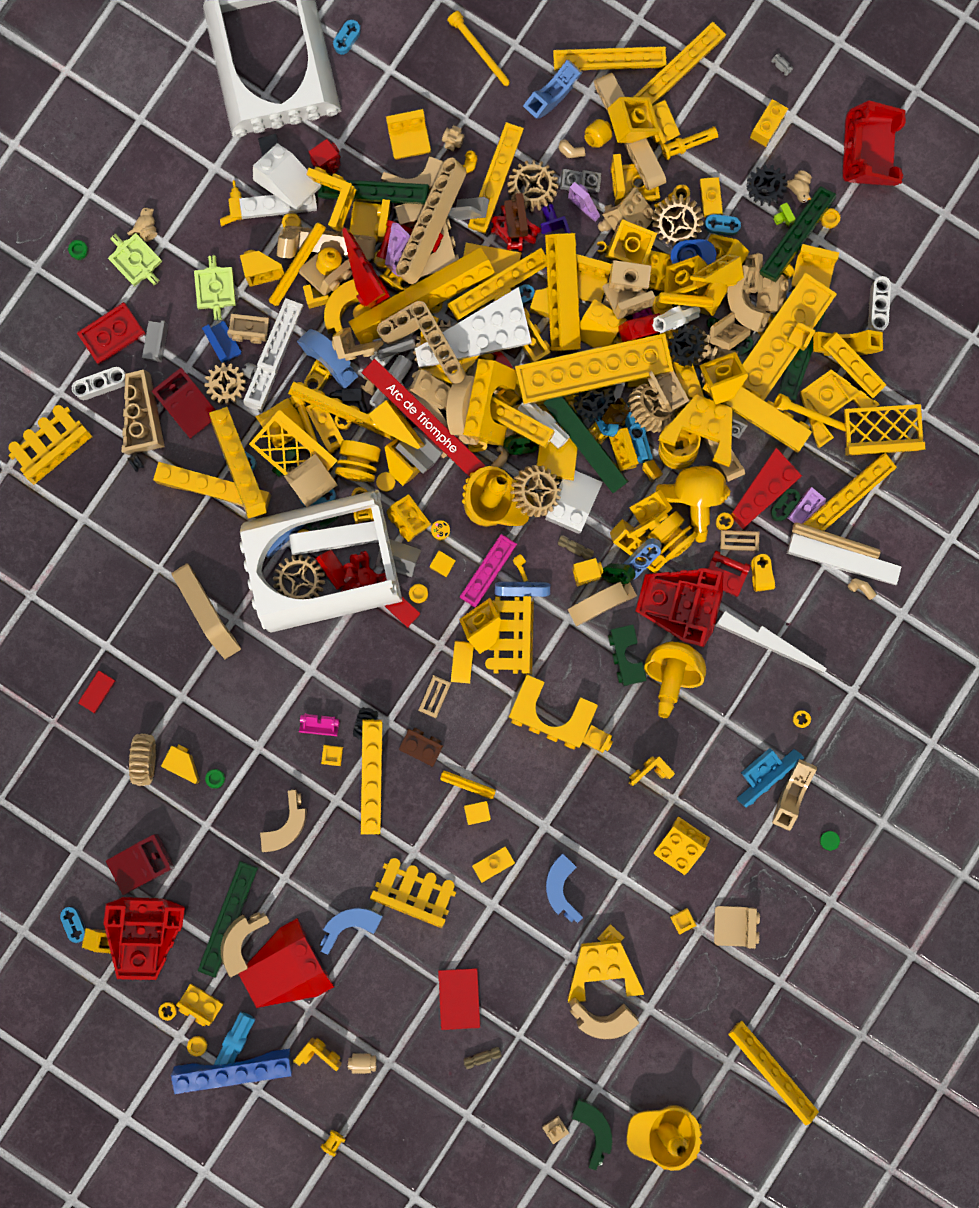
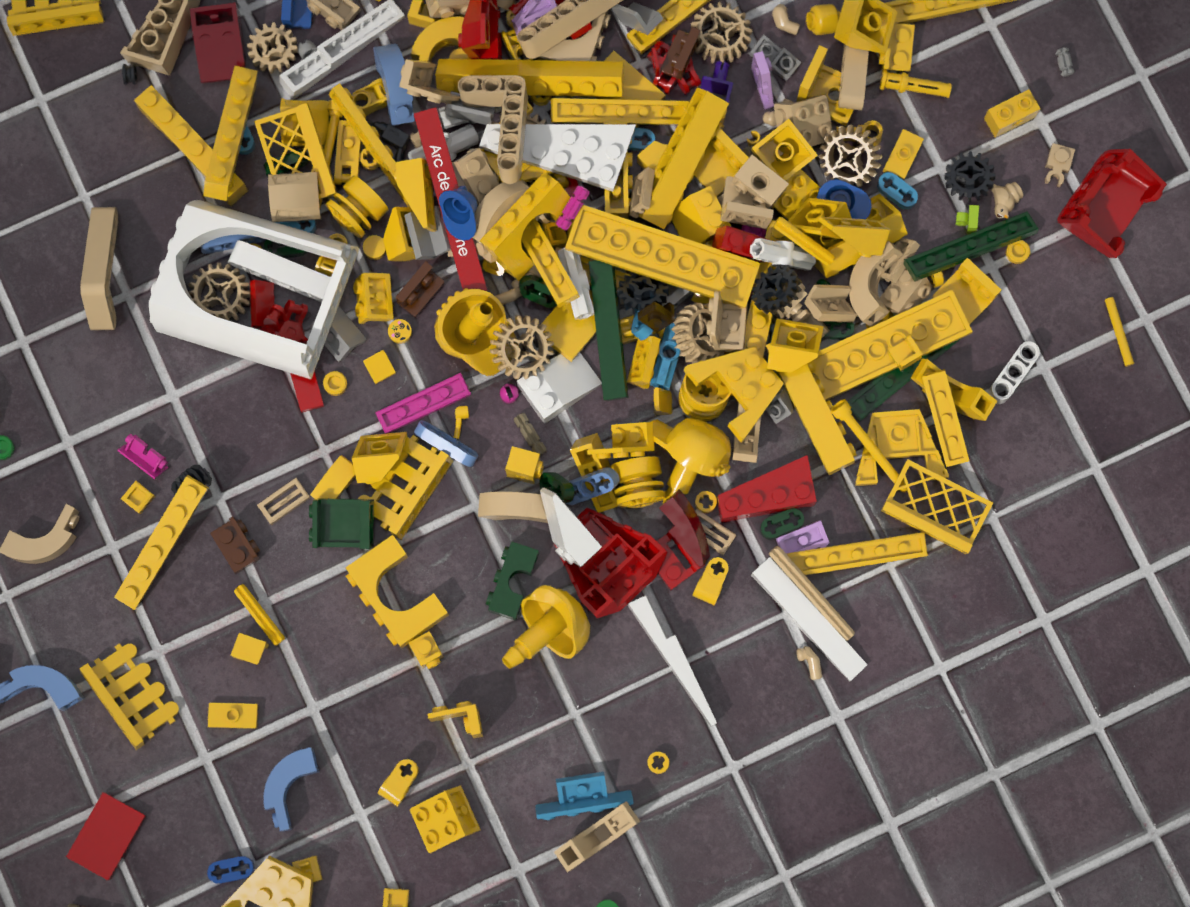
camera: 30 degrees right, 5 degrees down
(436, 423) = (458, 212): none -> blue piece
(437, 493) = (419, 290): none -> reddish brown bracket
(486, 687) = (342, 523): none -> dark green panel
(512, 372) = (572, 207): none -> dark pink axle
(541, 531) = (504, 395): none -> dark pink hinge
(550, 332) = (641, 192): none -> tan tile
(561, 972) = (231, 876): none -> blue beam
(635, 843) = (396, 785): none -> yellow piece
(648, 600) = (567, 532): none -> white slope
(723, 546) = (687, 527): none -> dark red slope
(820, 137) = (1059, 161): none -> tan plate
(932, 233) = (1119, 331): none -> yellow bar

